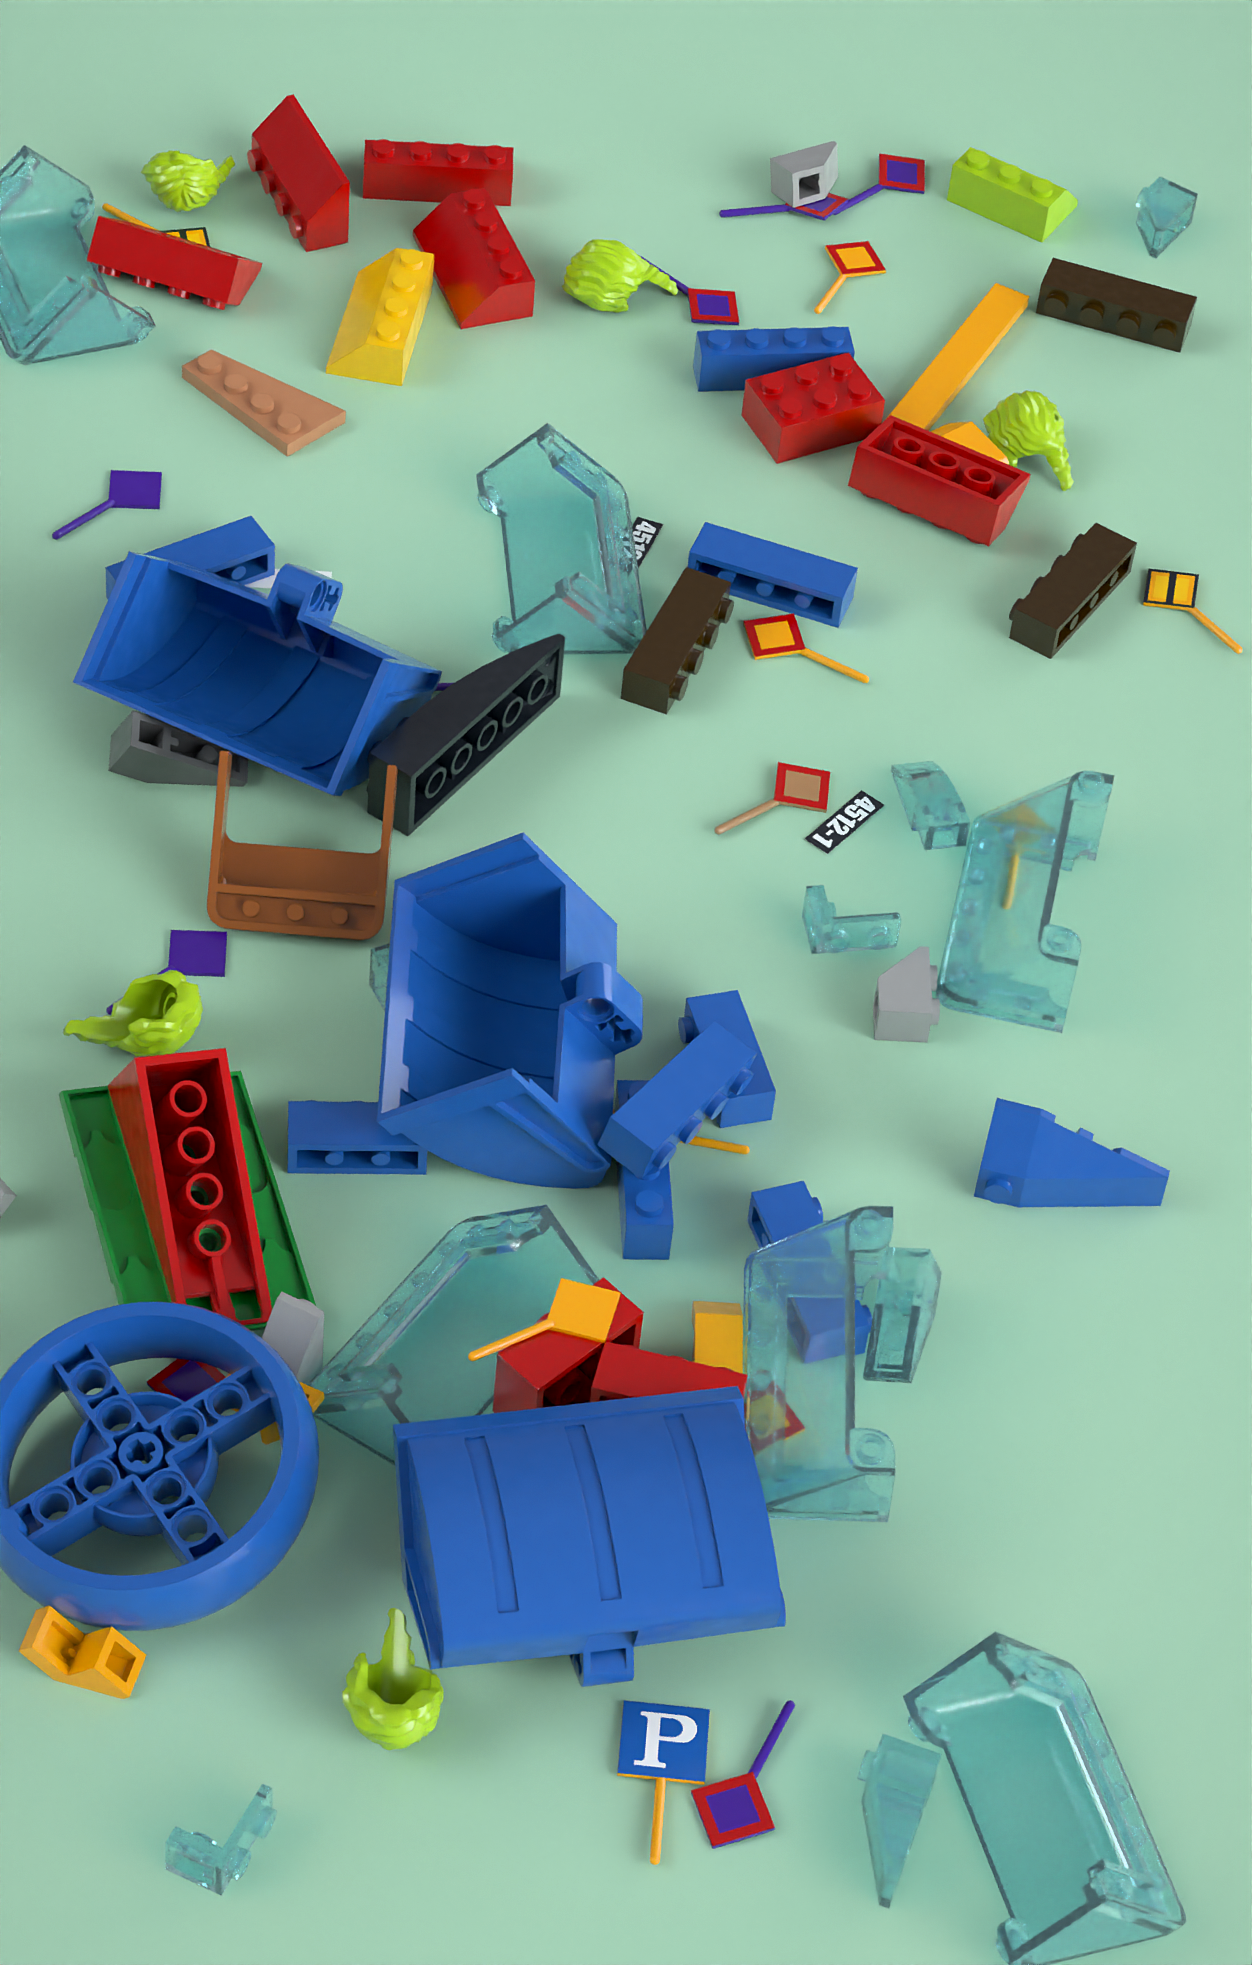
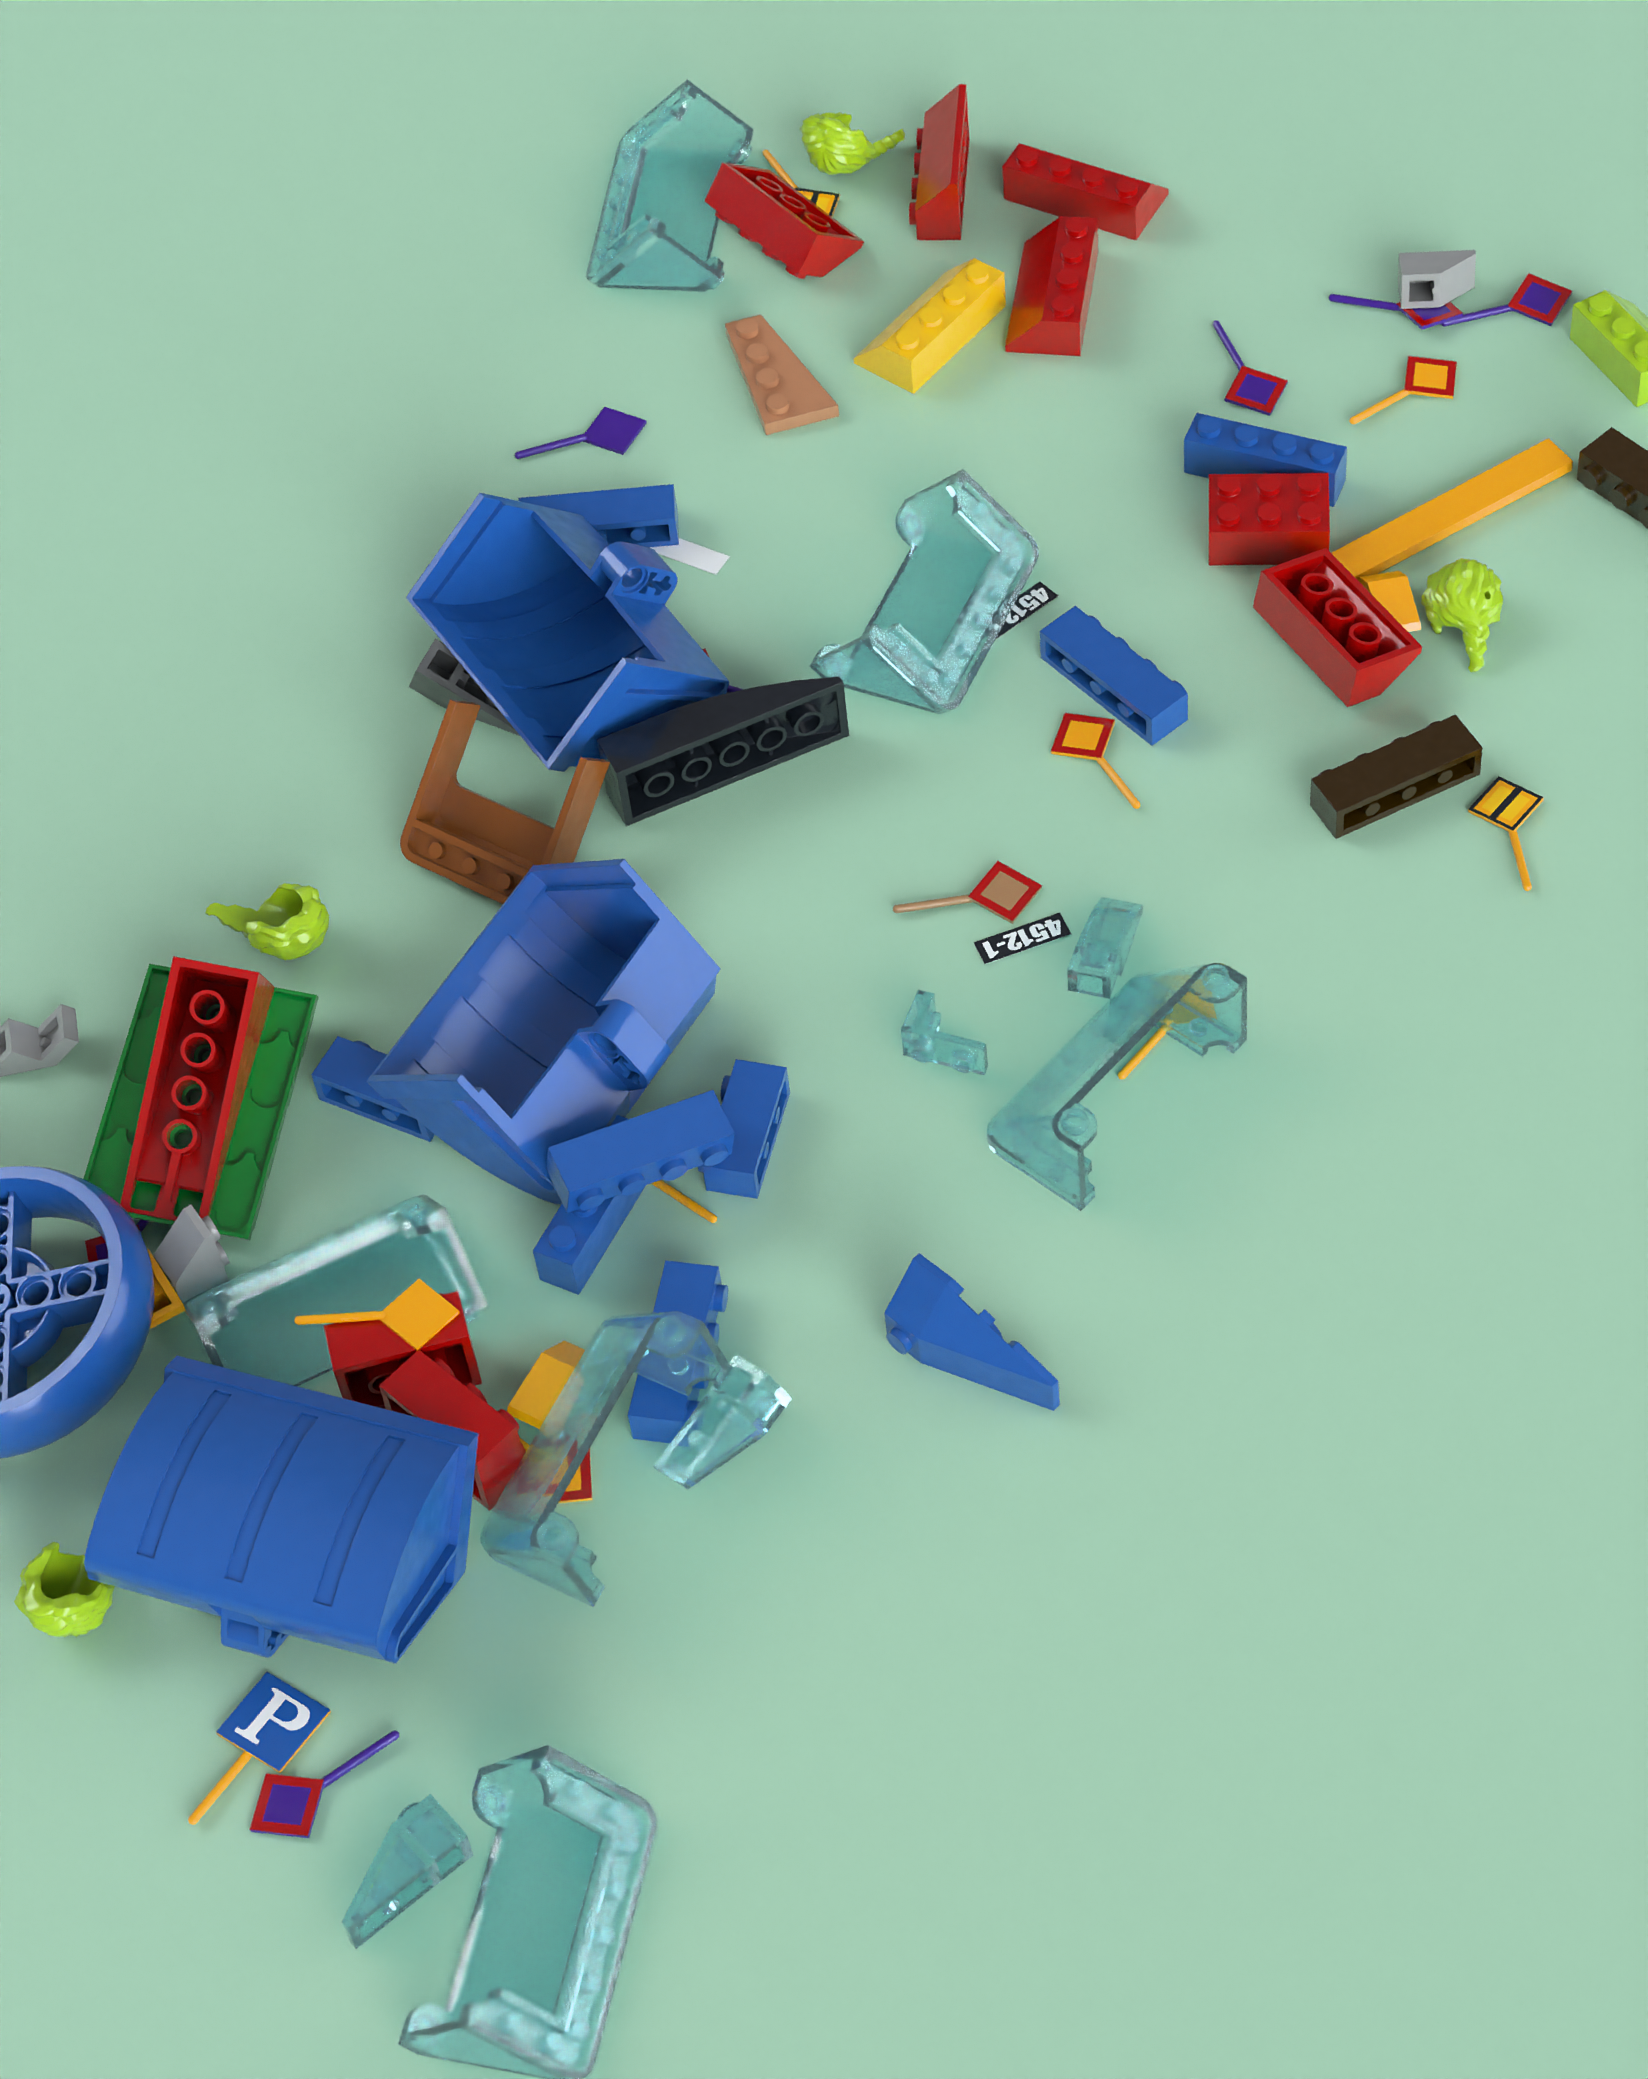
camera: 40 degrees right, 5 degrees up
(195, 954) = (375, 876): dark purple piece -> none
(608, 273) = (1167, 330): lime hair -> none
(677, 641) = (979, 713): dark brown brick -> none
(904, 999) = (943, 1127): light grey slope -> none

